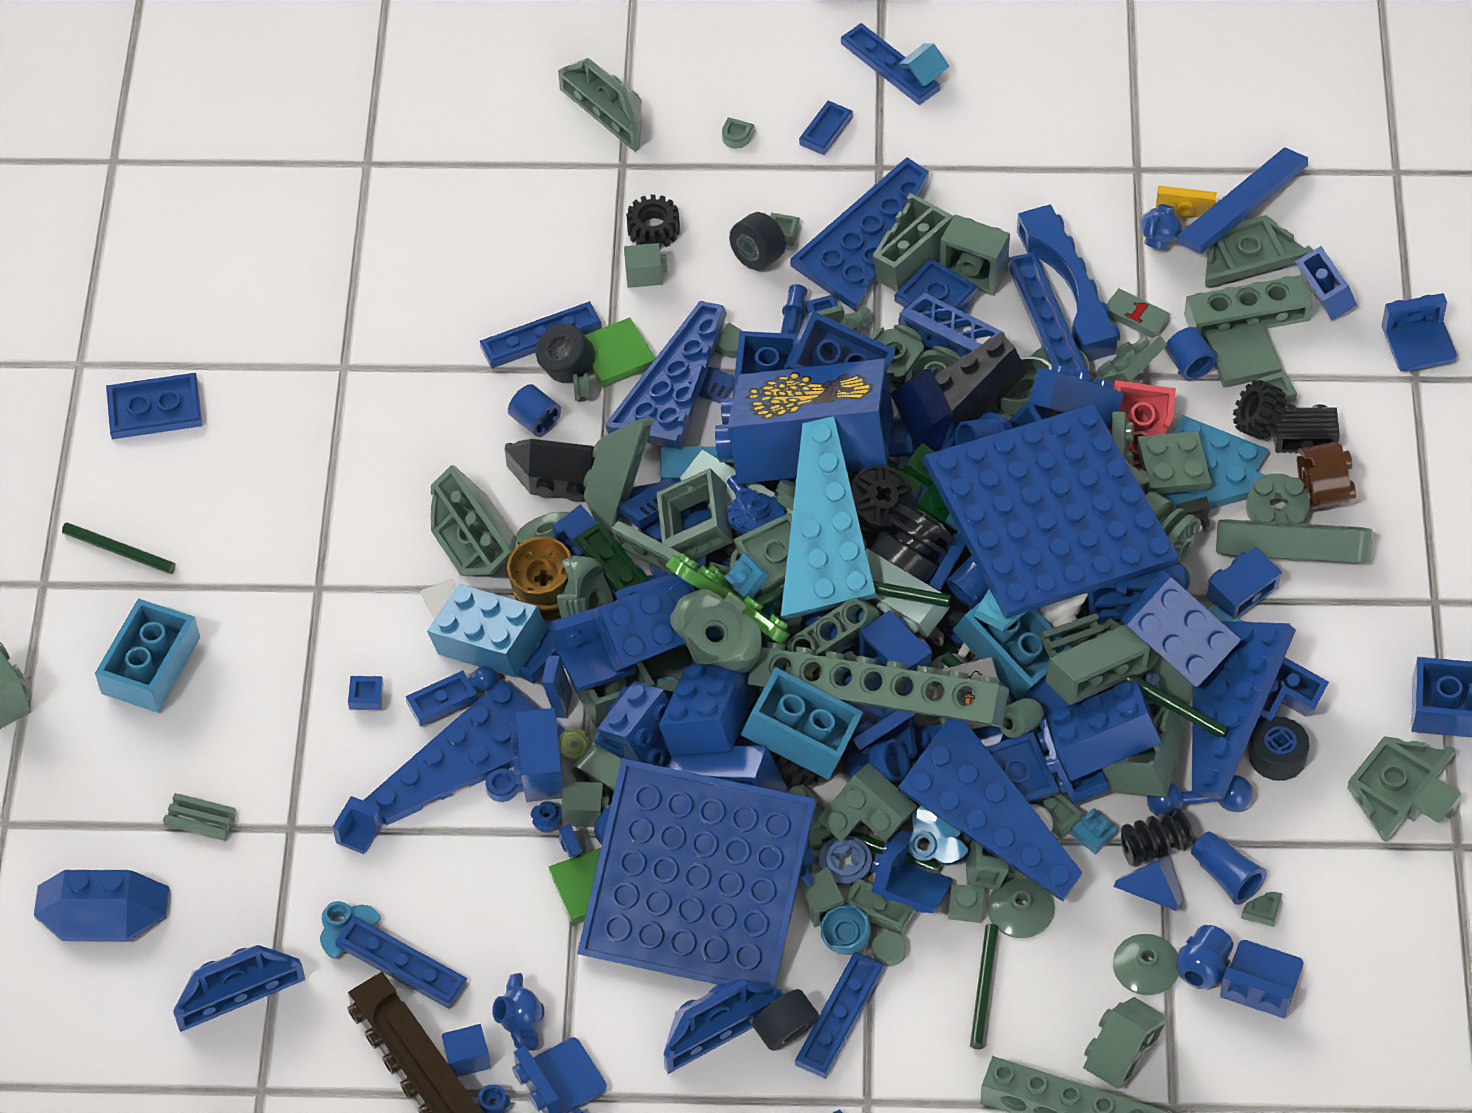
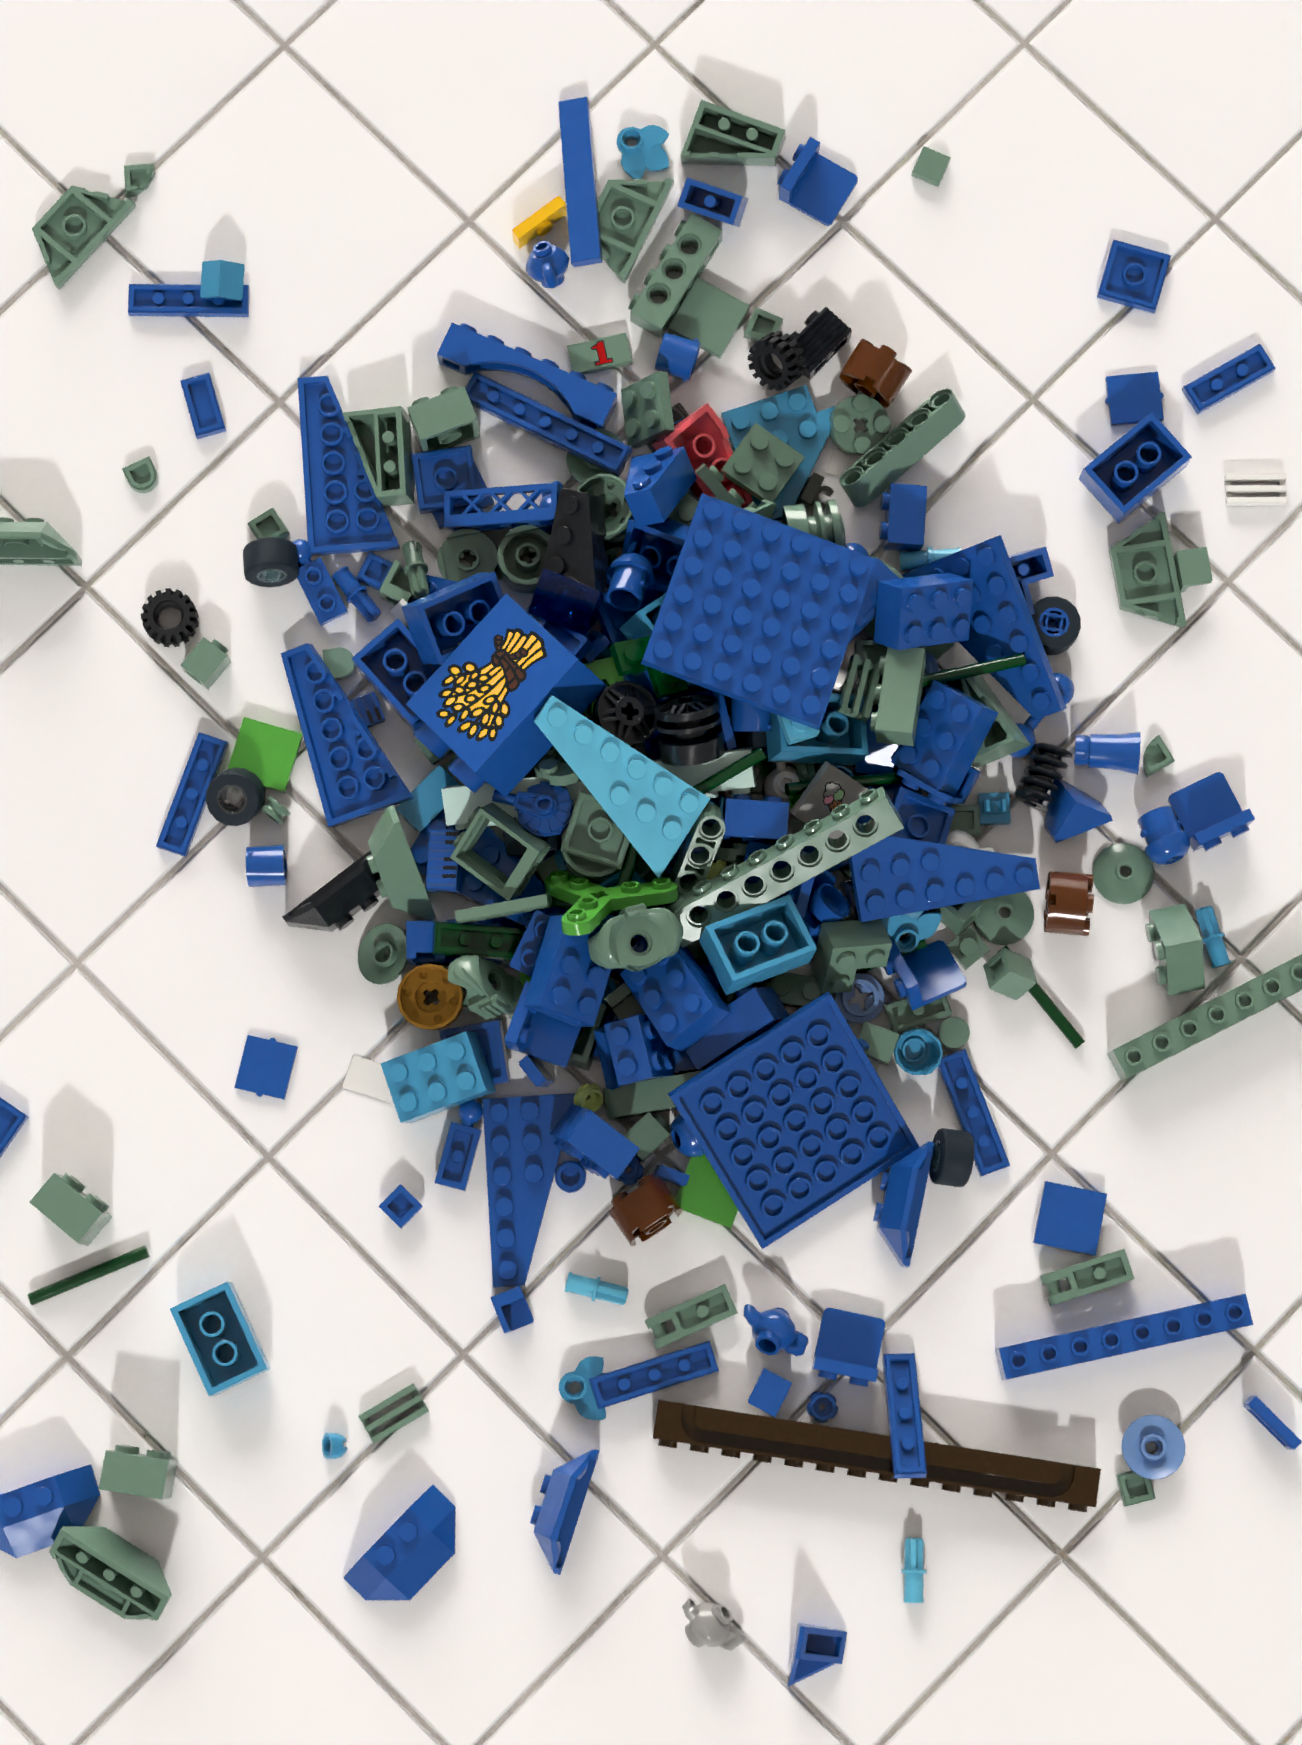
camera: 50 degrees left, 25 degrees up
(137, 797) = (333, 1445): none -> dark azure hinge
(156, 489) = (72, 1209): none -> sand green brick
(386, 533) = (266, 1067): none -> blue piece
(430, 869) = (596, 1289): none -> medium azure axle
(469, 525) = (331, 1006): sand green wedge -> none
(474, 950) = (692, 1316): none -> sand green plate
(523, 843) = (644, 1209): none -> reddish brown brick
(747, 575) = (602, 870): dark azure tile -> none
(773, 286) = (318, 586): none -> blue plate
(977, 945) = (1010, 974): none -> sand green panel
(1021, 717) = (888, 776): sand green brick -> none
(1074, 930) = (1068, 903): none -> reddish brown brick
(1166, 1067) = (1212, 936): none -> dark azure axle
(1313, 220) = (646, 153): none -> dark azure plate
(1383, 256) = (731, 139): none -> sand green wedge

